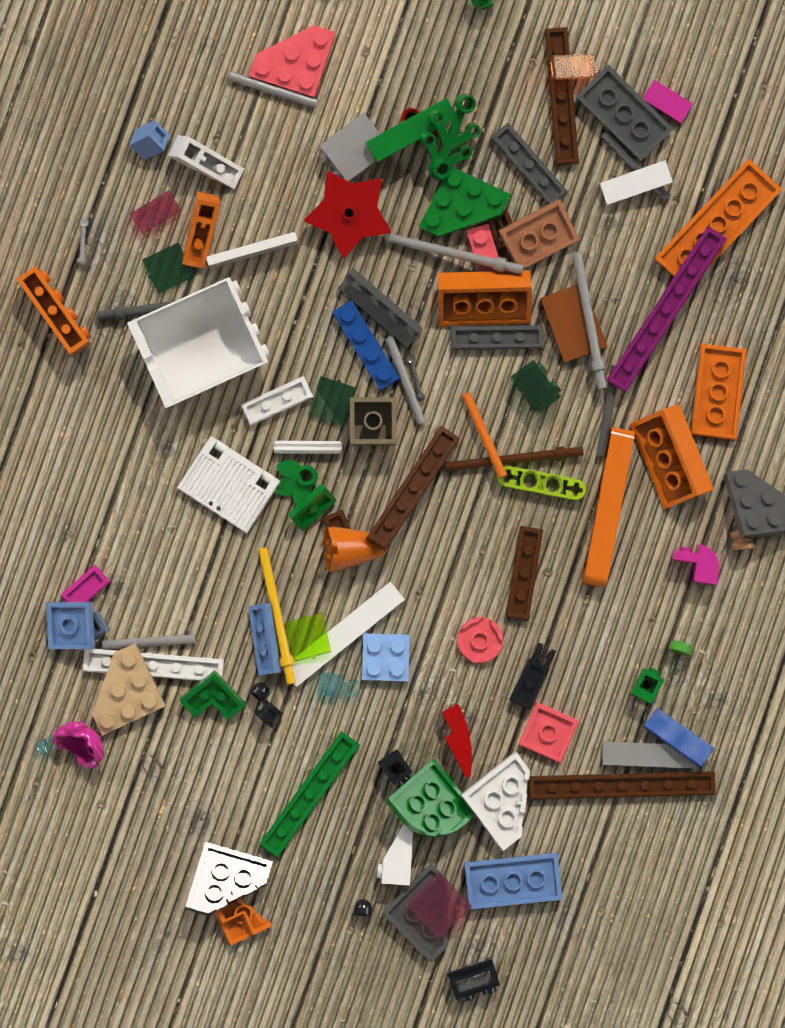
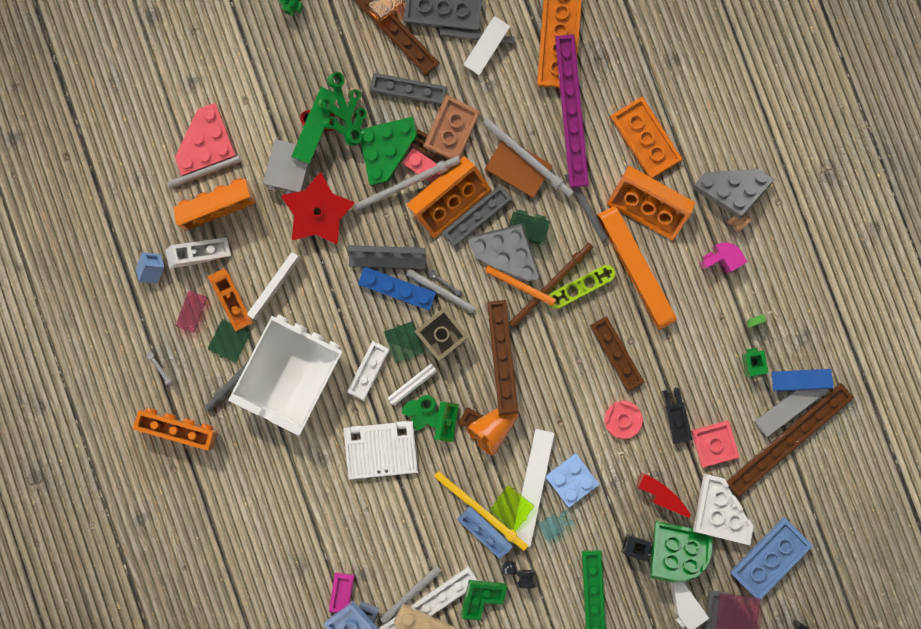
camera: 35 degrees left, 0 degrees up
(258, 129) = (214, 204): none -> orange slope
(497, 393) = (507, 251): none -> plate

